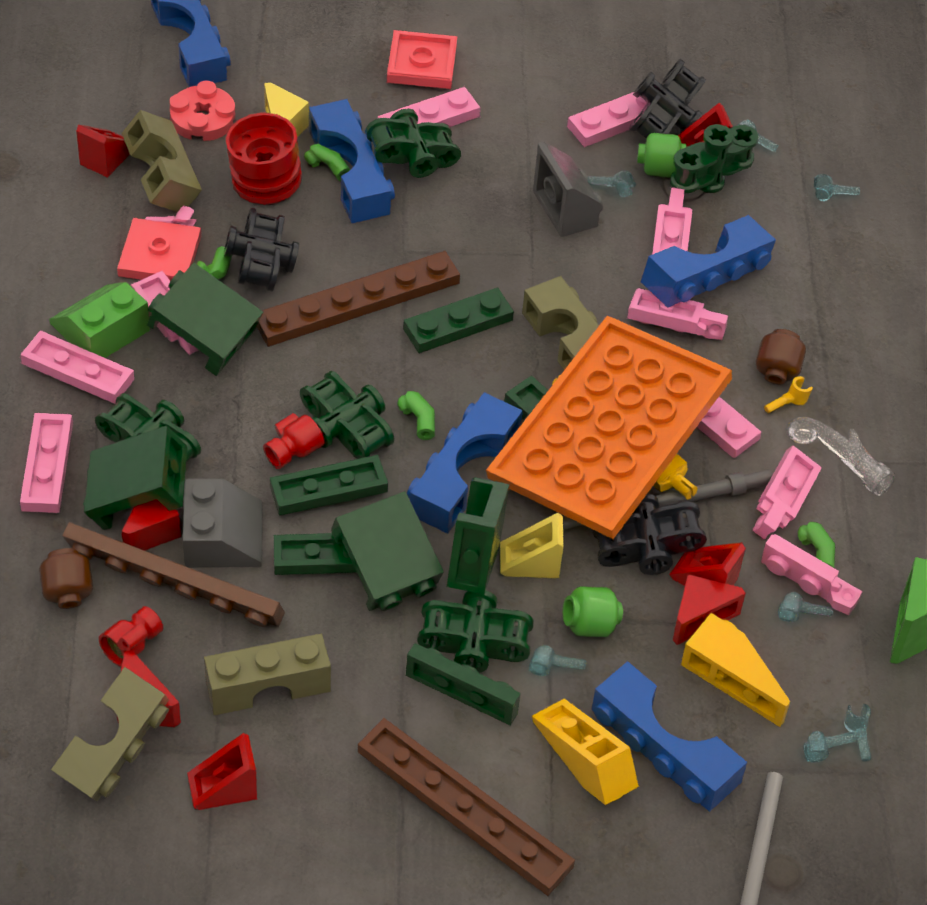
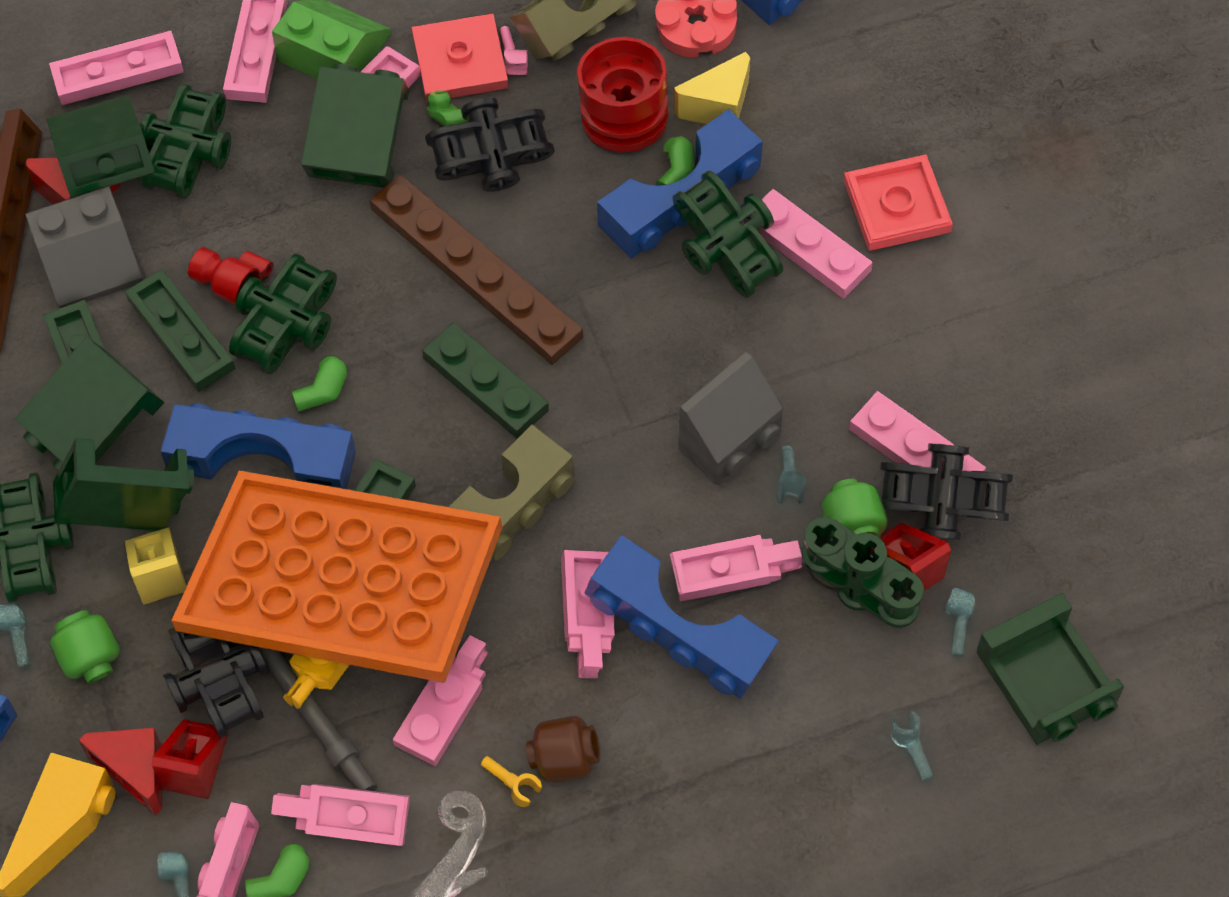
camera: 75 degrees right, 10 degrees up
(810, 109) = (1047, 671): none -> dark green panel

